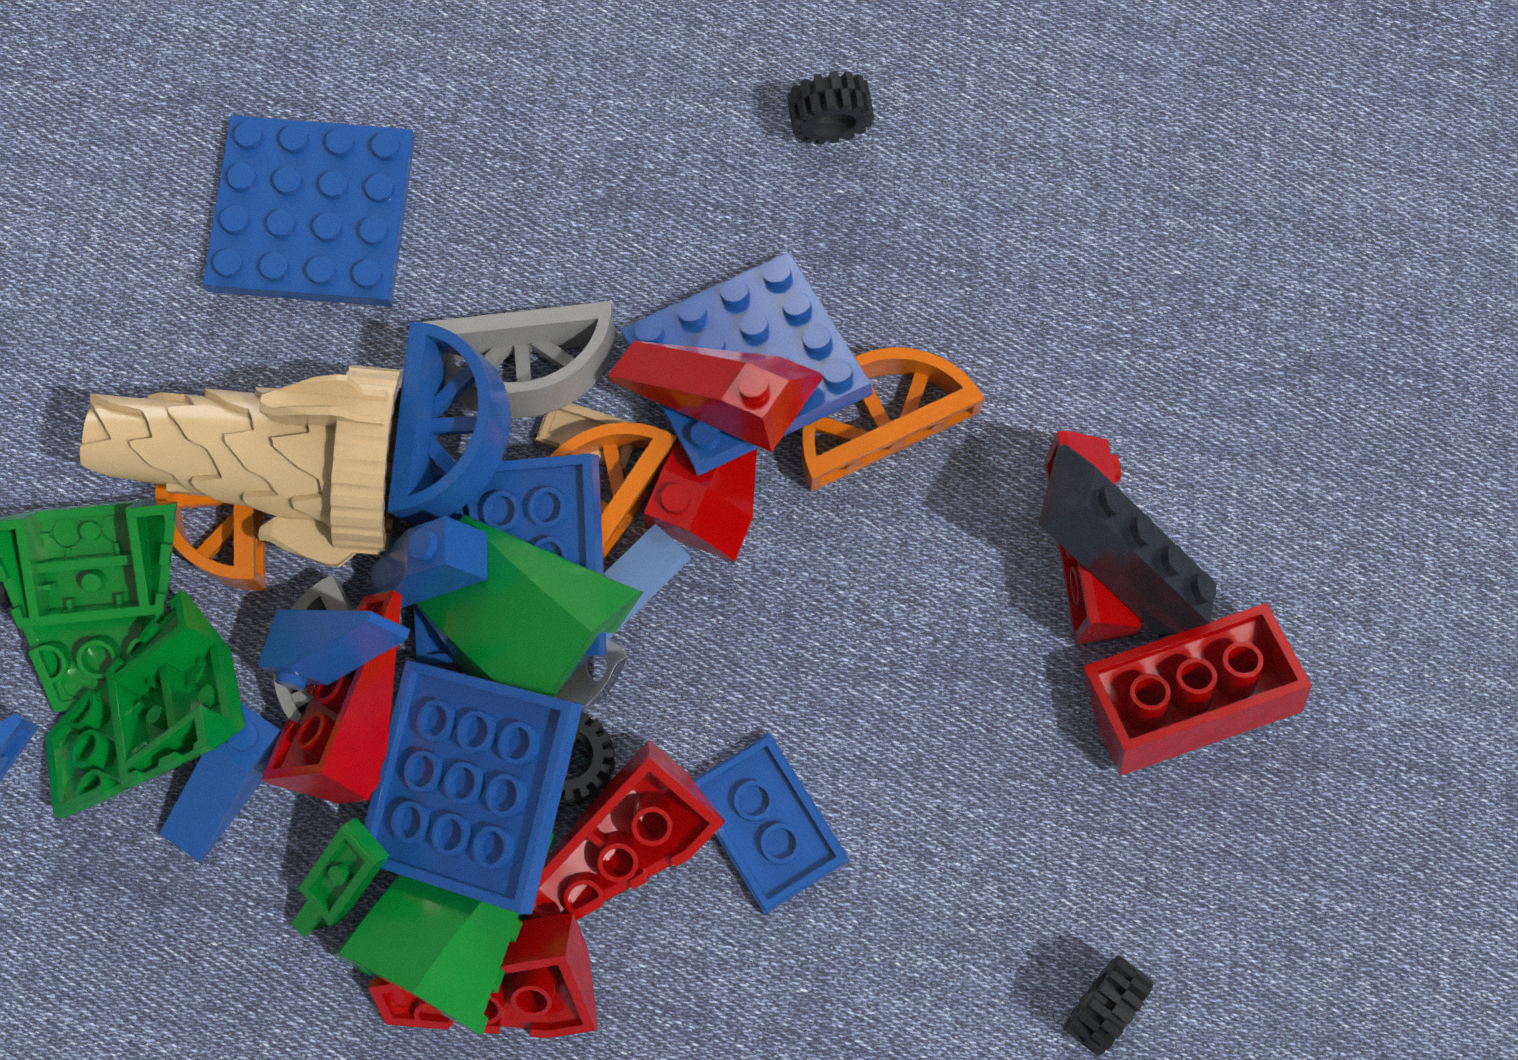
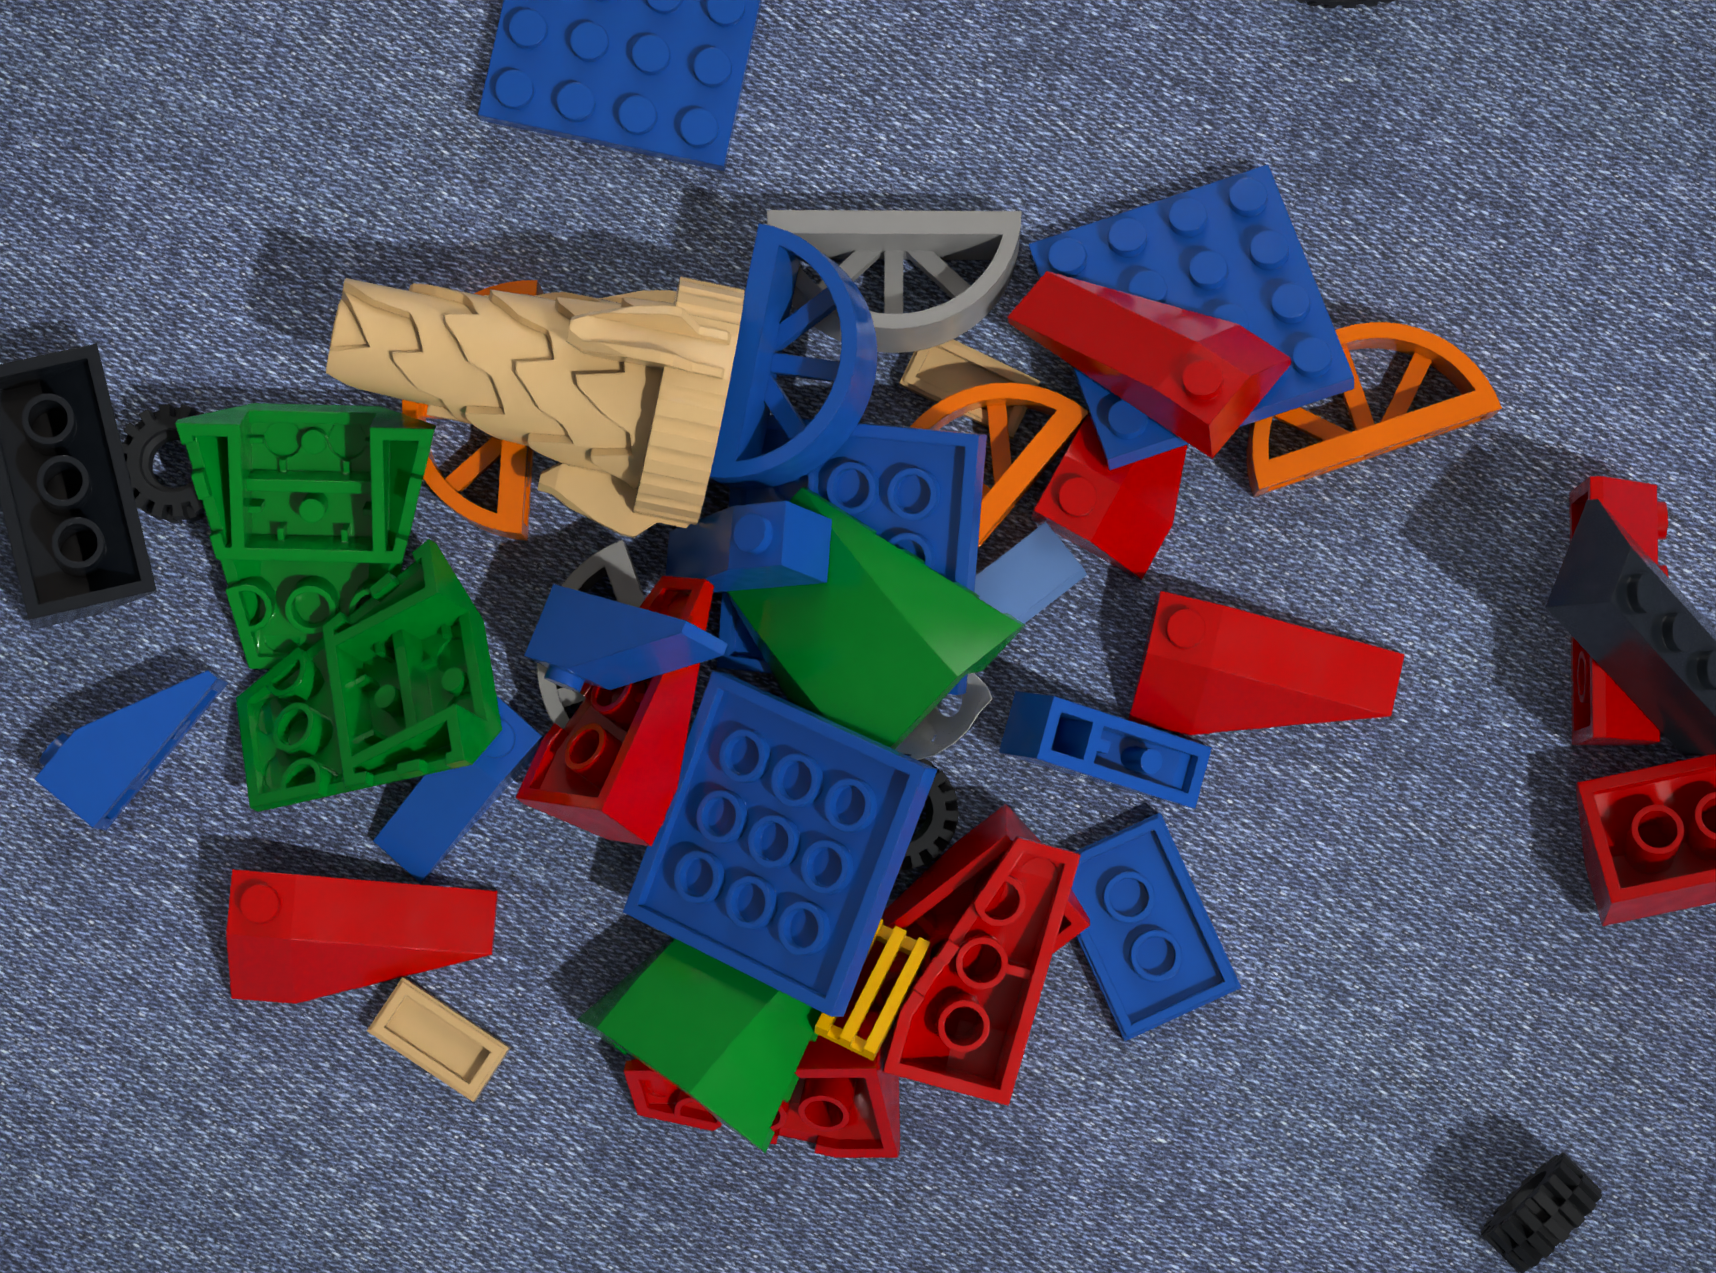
camera: 15 degrees right, 10 degrees up
(120, 911) = (330, 935): none -> red wedge
(222, 984) = (438, 1039): none -> tan tile
(339, 877) = (602, 932): green hinge -> none
(571, 854) = (895, 941): none -> yellow tile
(643, 885) = (981, 991): none -> red wedge
(720, 688) = (1104, 748): none -> blue slope
(818, 617) = (1238, 670): none -> red wedge

